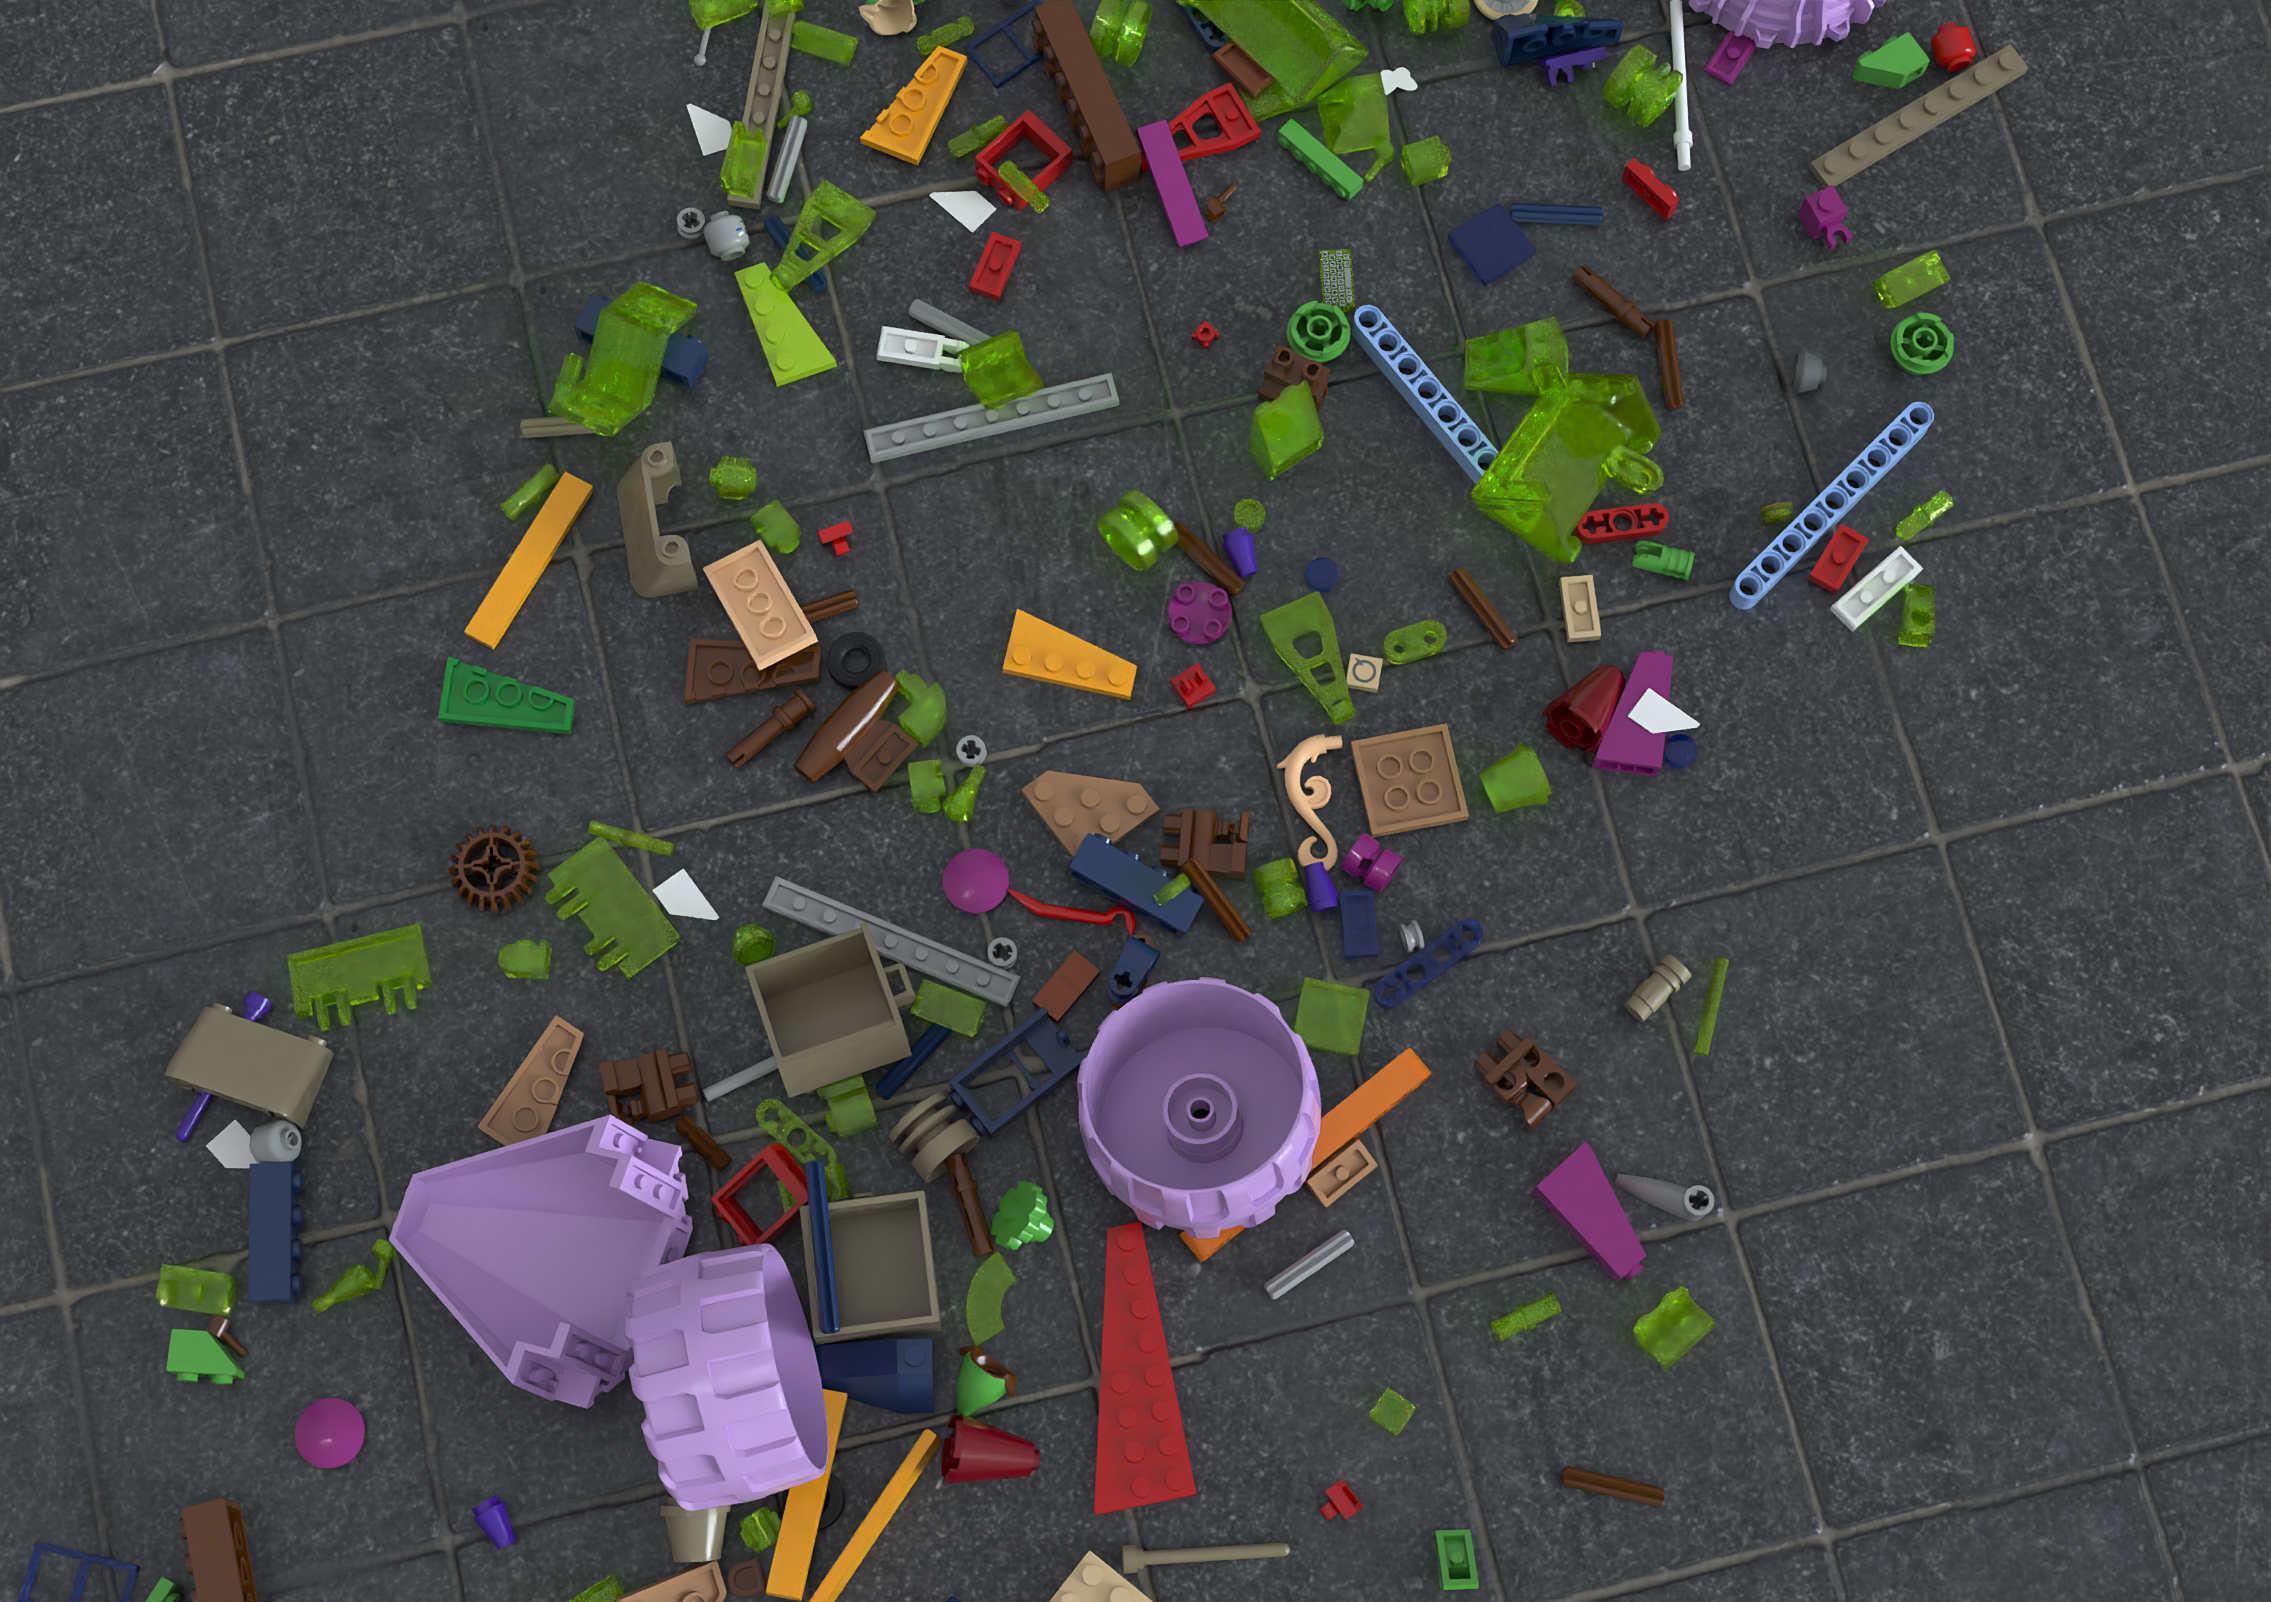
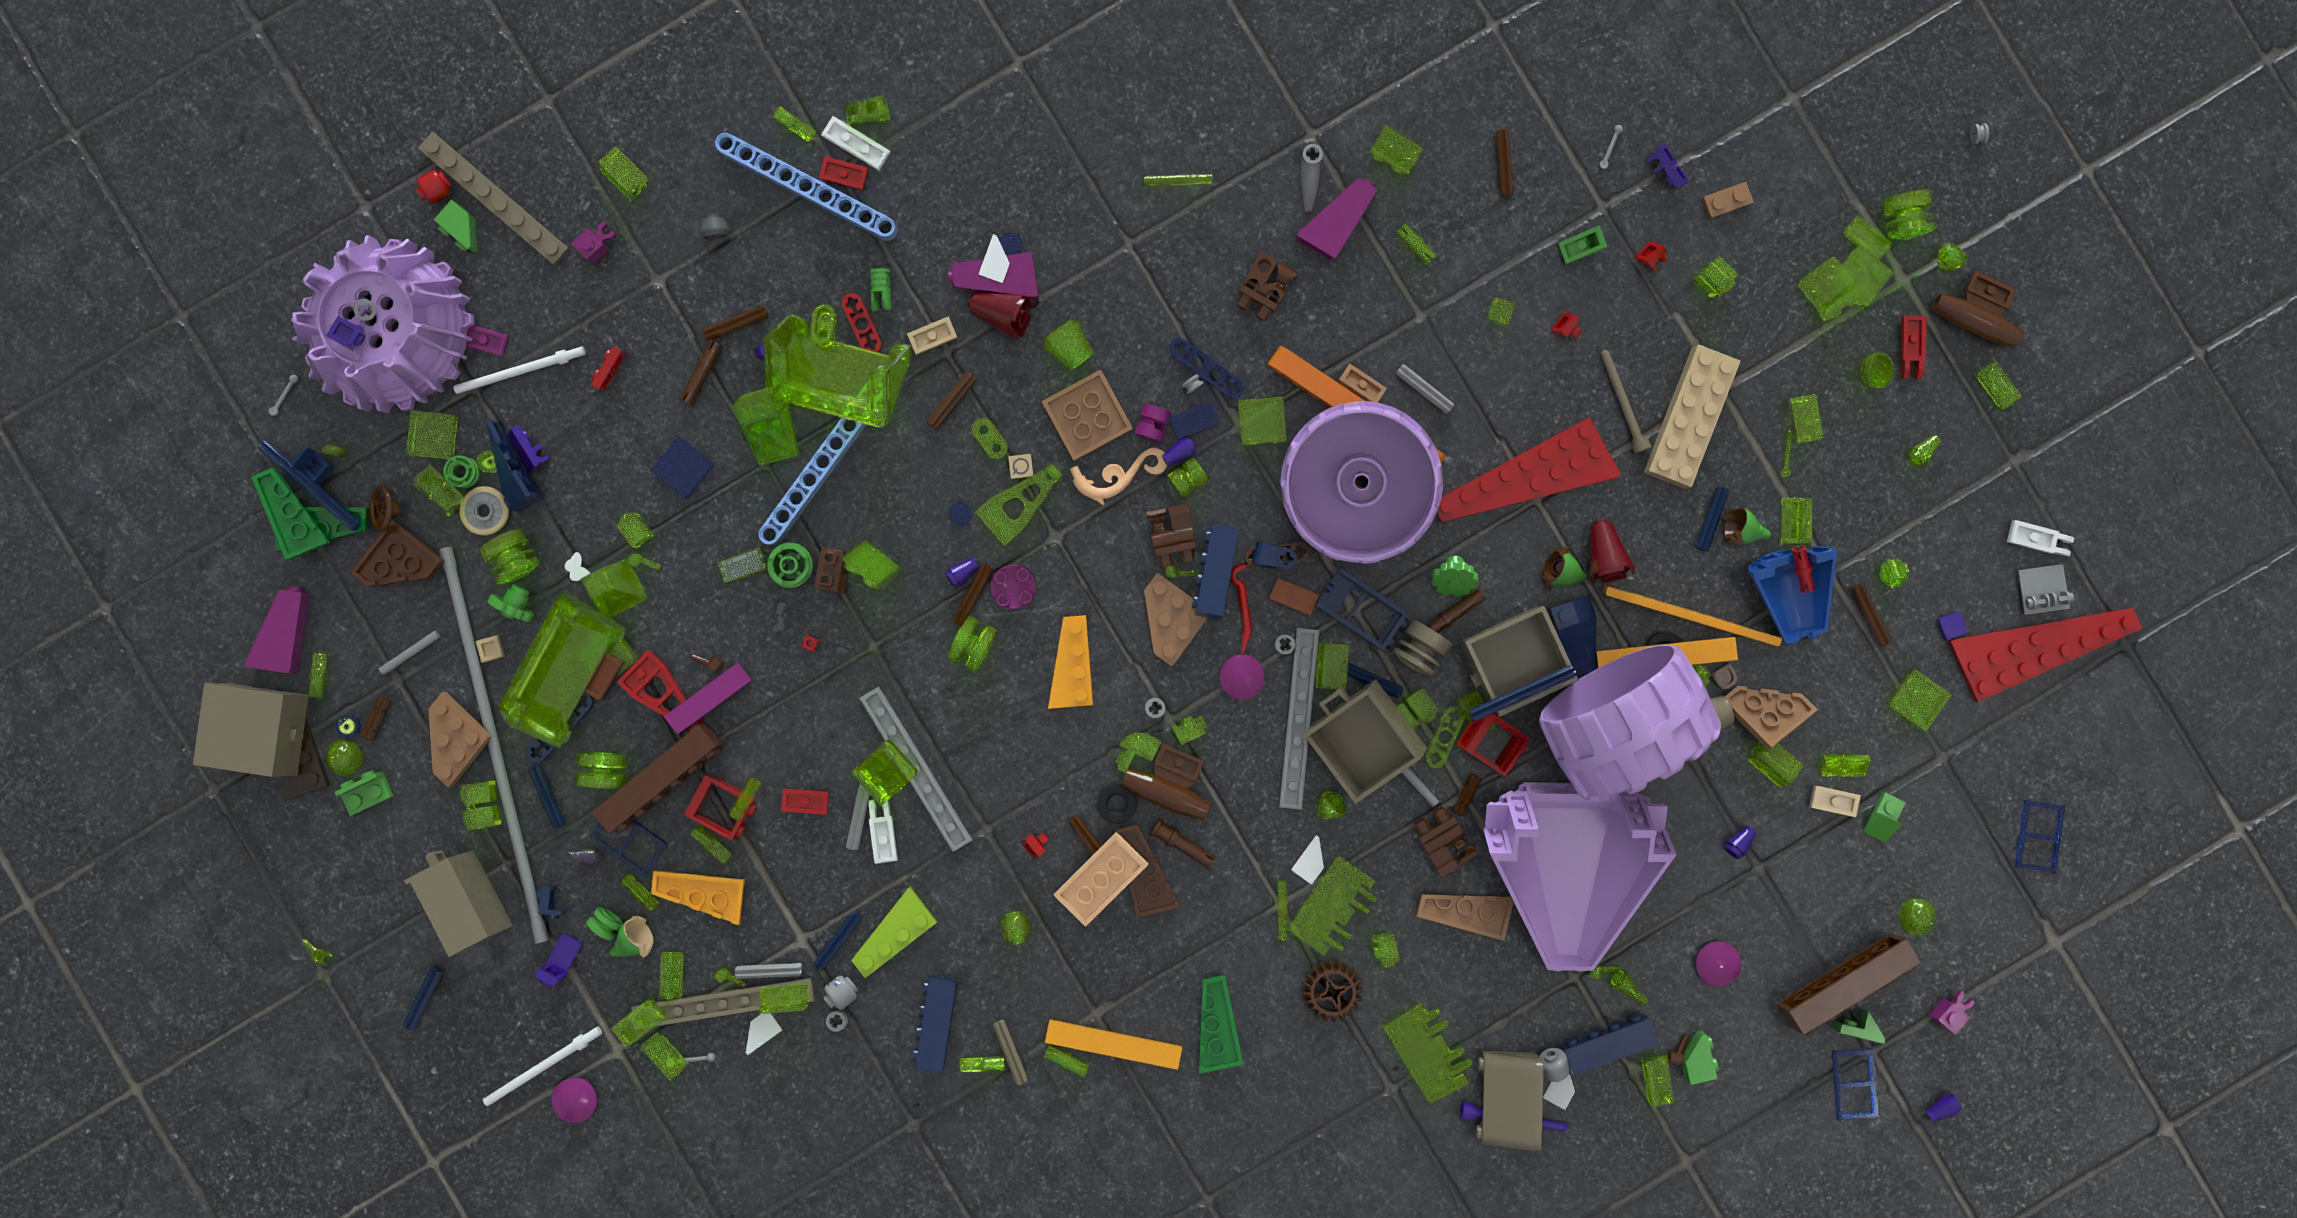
camera: 100 degrees left, 15 degrees up
(625, 358) = (956, 1028): clear neon green bracket -> none
(655, 562) = (1095, 962): dark tan windscreen -> none
(777, 527) = (1041, 886): clear neon green brick -> none
(839, 209) = (796, 920): clear neon green plate -> none
(961, 802) = (1190, 702): clear neon green cone -> none
(965, 206) = (764, 836): white sticker -> none
(985, 1298) = (1508, 585): clear neon green tile -> none
(1153, 830) = (1172, 572): none -> clear neon green hand
(1172, 889) = (1216, 544): clear neon green tile -> none
(1193, 686) = (1064, 576): red tile -> none
(1216, 899) = (1209, 516): reddish brown axle -> none
(1249, 514) = (932, 574): clear neon green tile -> none
(1319, 160) = (655, 603): bright green piece -> none
(1556, 214) = (646, 429): dark blue axle -> none
(1645, 88) = (533, 393): clear neon green wheel -> none
(1657, 988) = (1179, 217): dark tan axle -> none
(1777, 512) = (822, 222): clear neon green tile -> none
(1921, 344) = (672, 153): bright green cone -> none

